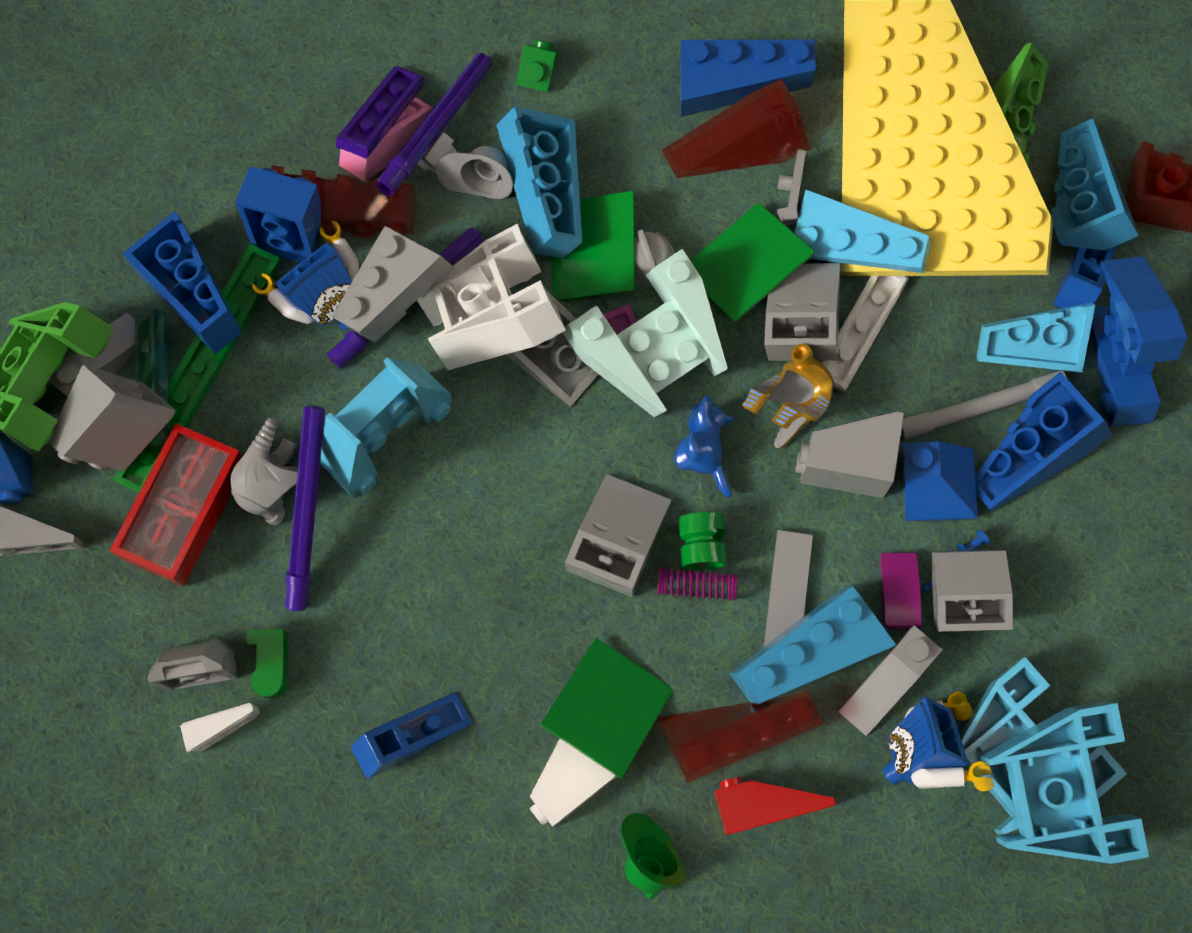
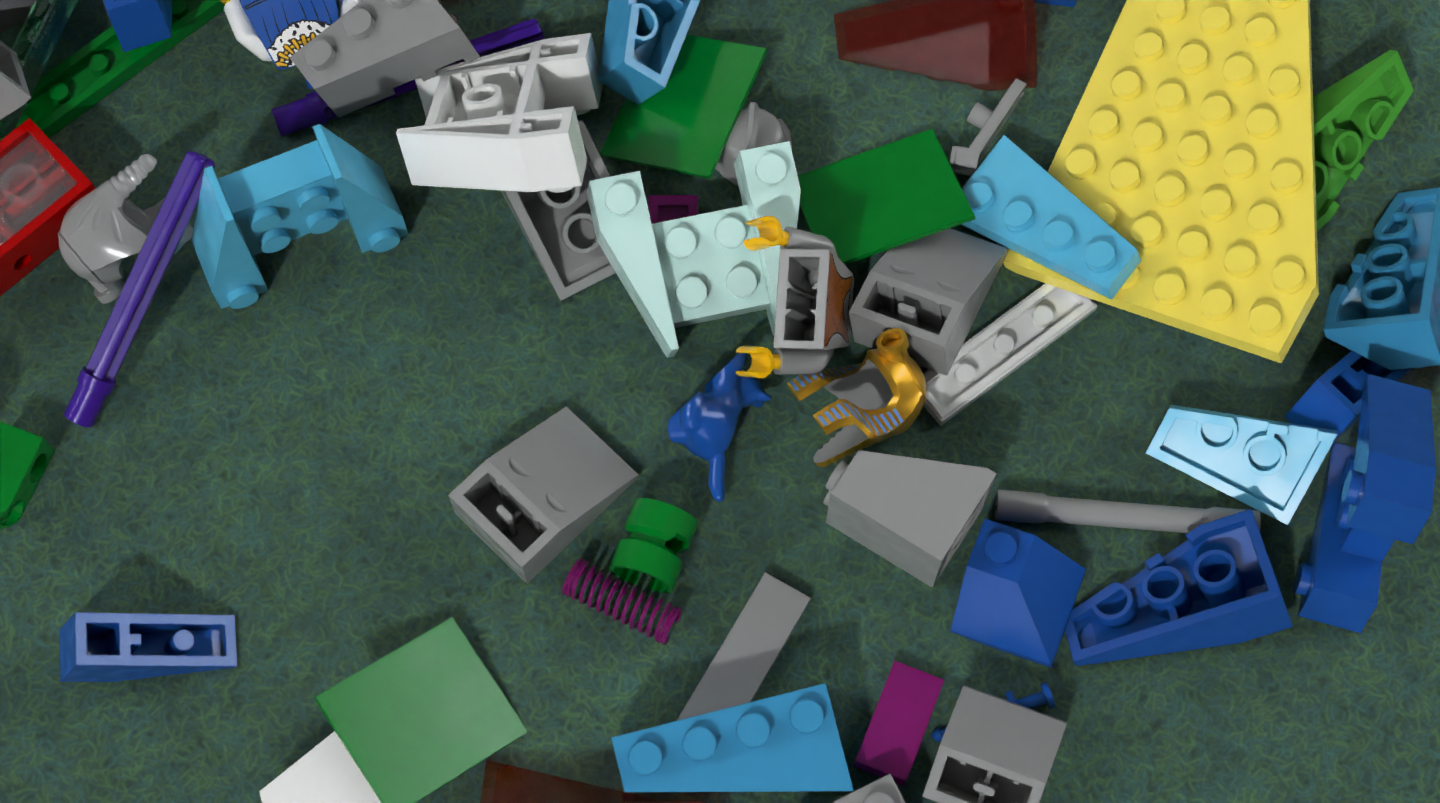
camera: 20 degrees right, 5 degrees down
(738, 349) = (810, 302): none -> light grey torso

